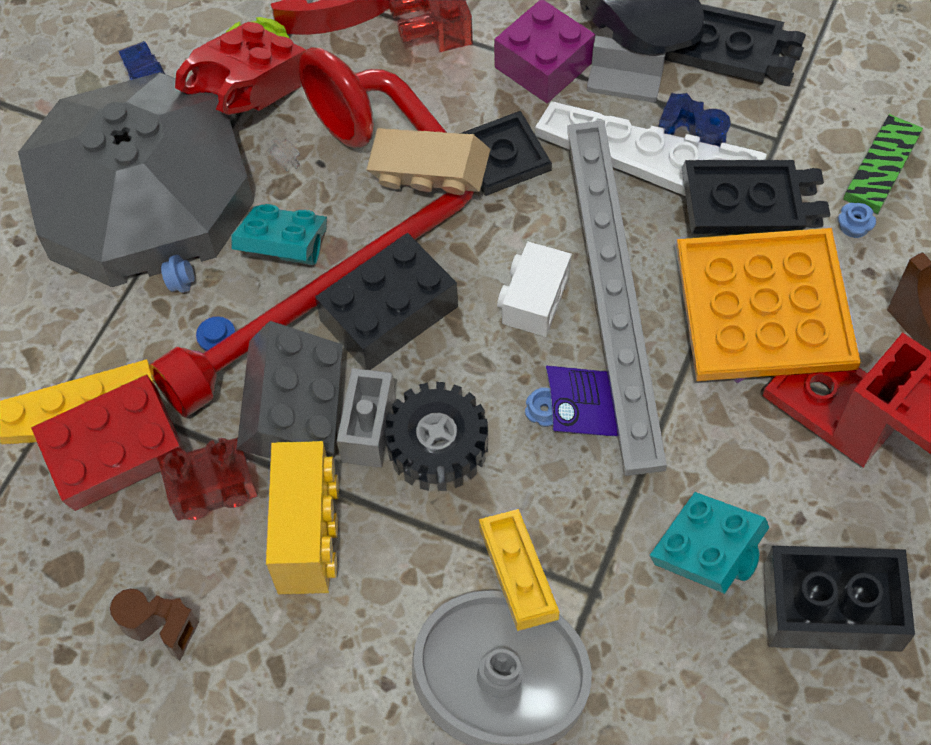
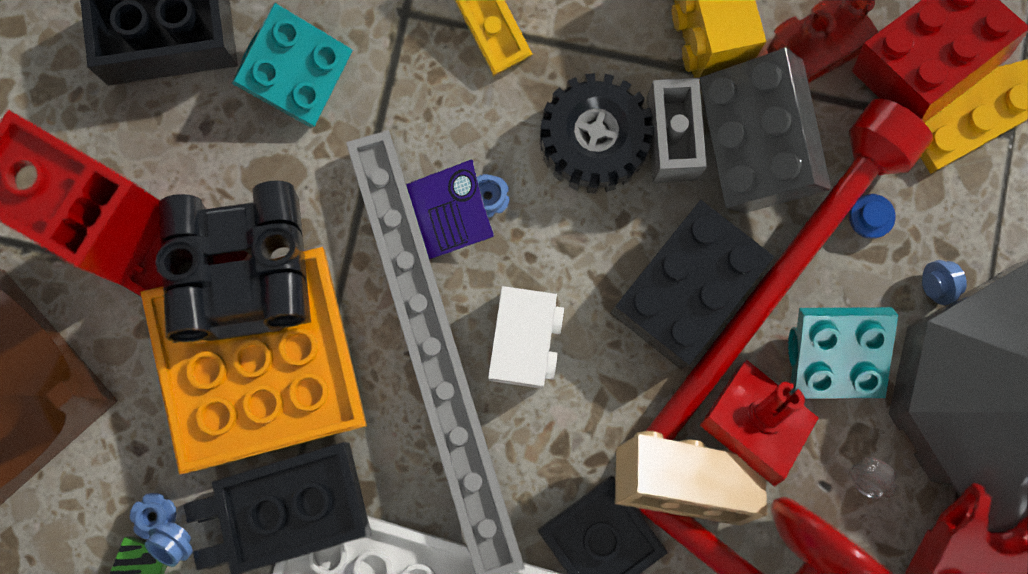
camera: 165 degrees right, 20 degrees up
(361, 197) = (761, 422): none -> red tile
(776, 390) = (237, 295): none -> black piece
(842, 189) = (169, 543): none -> medium blue plate

